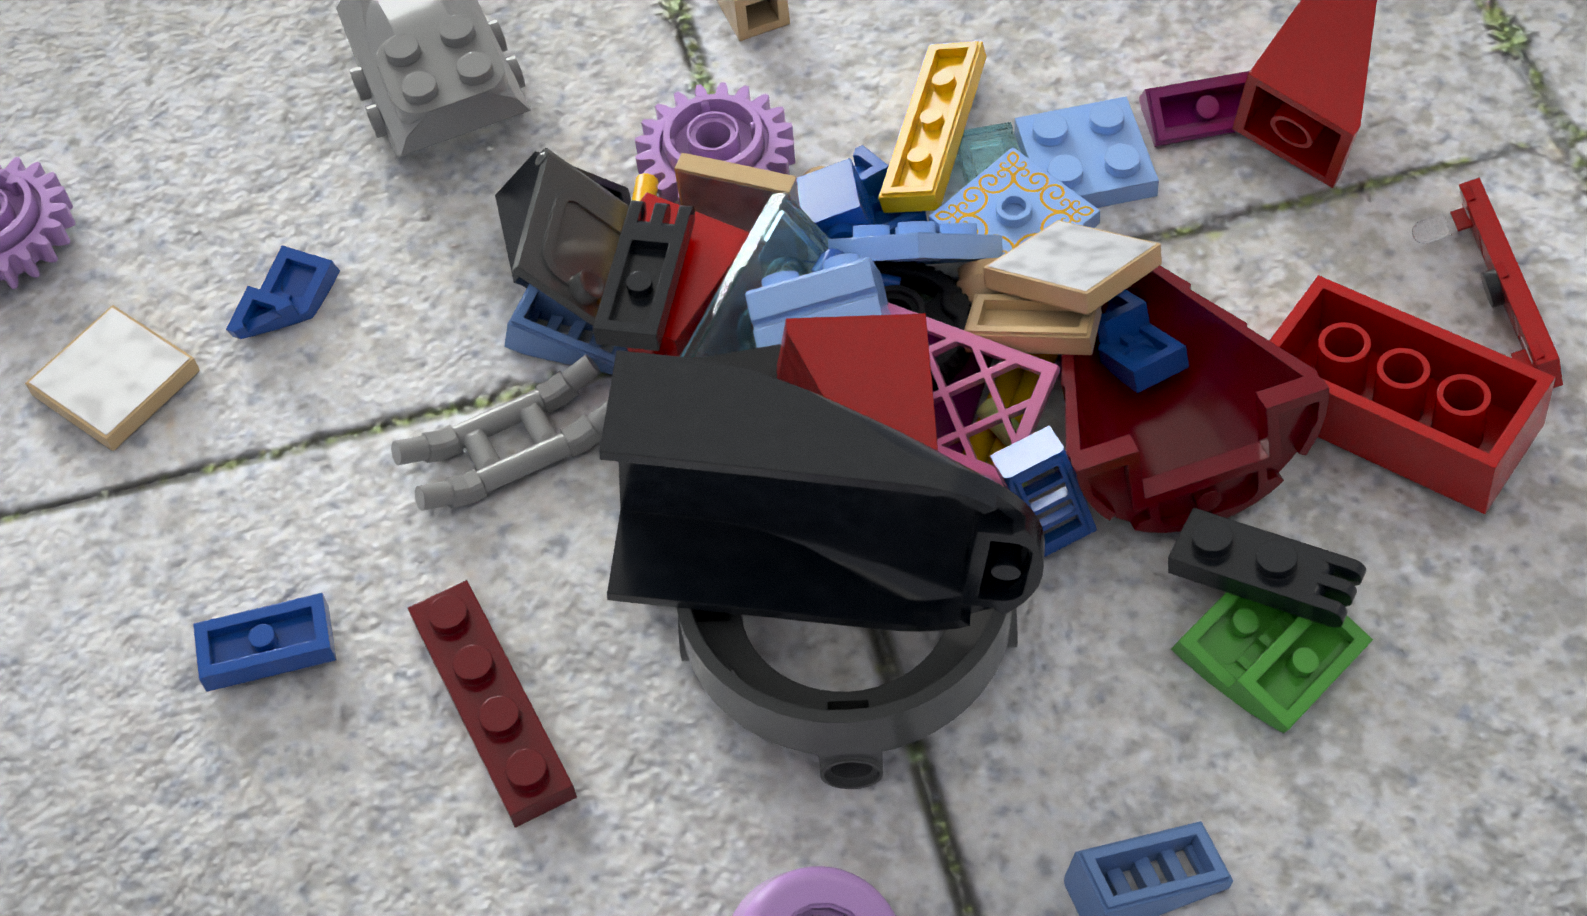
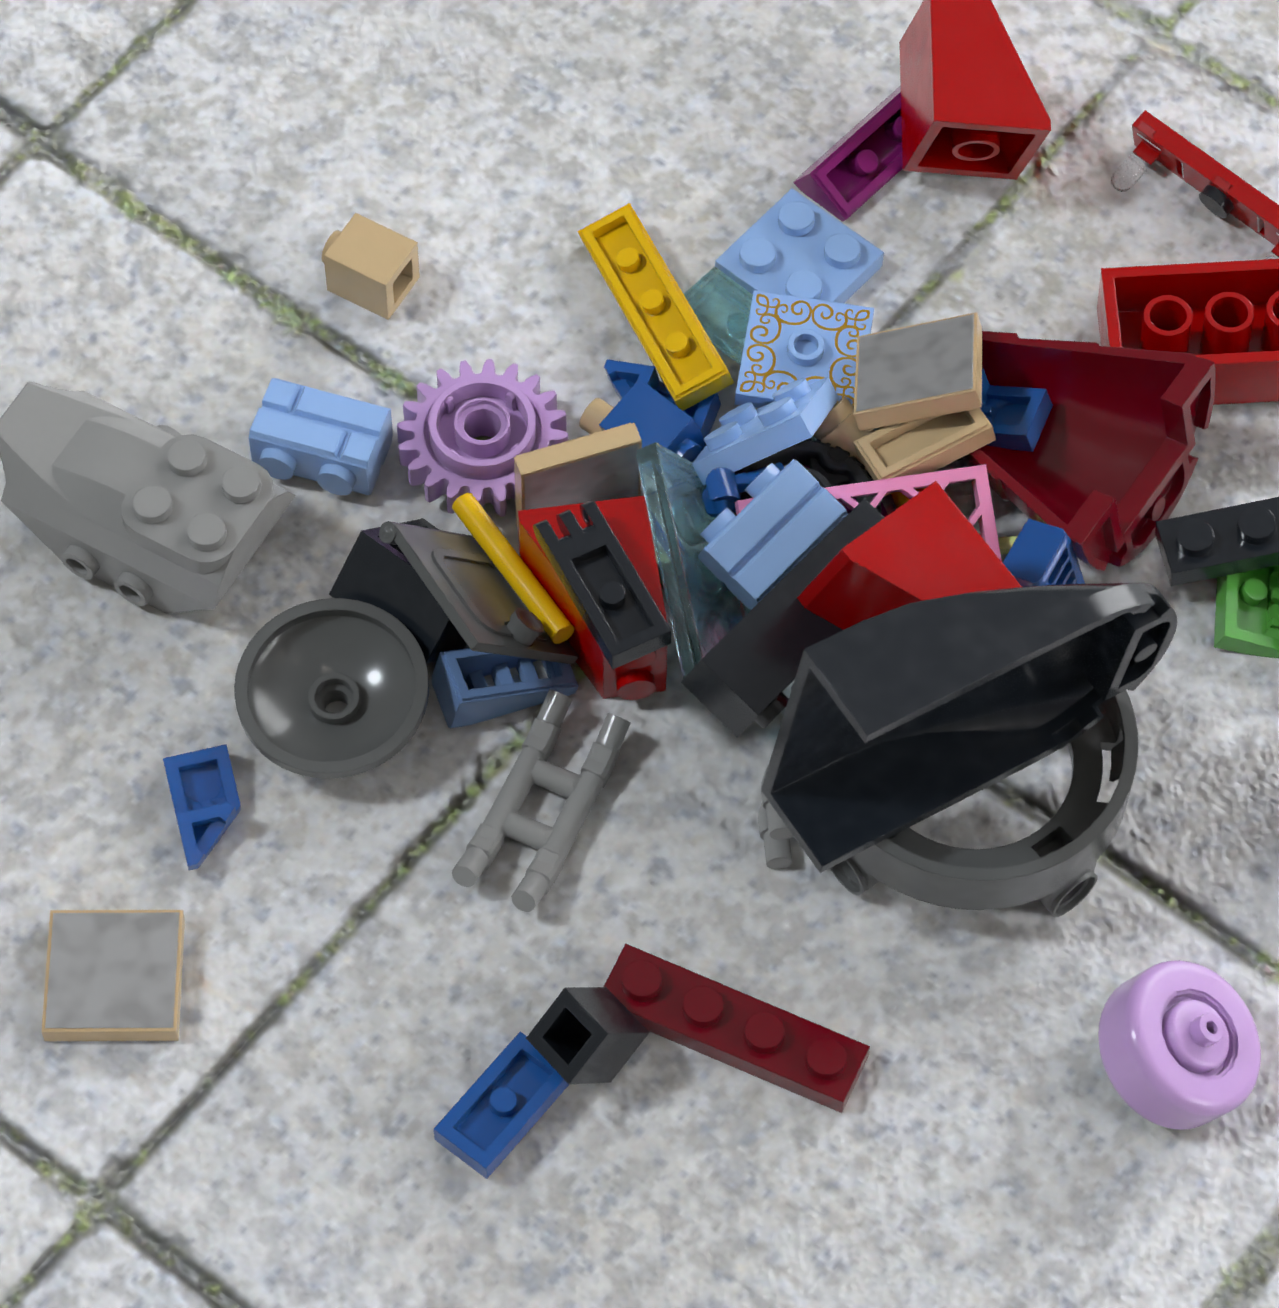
camera: 45 degrees left, 5 degrees up
(358, 625) = (587, 1035): none -> black brick
(427, 259) = (324, 656): none -> dark grey dish
(599, 88) = (320, 437): none -> light blue brick

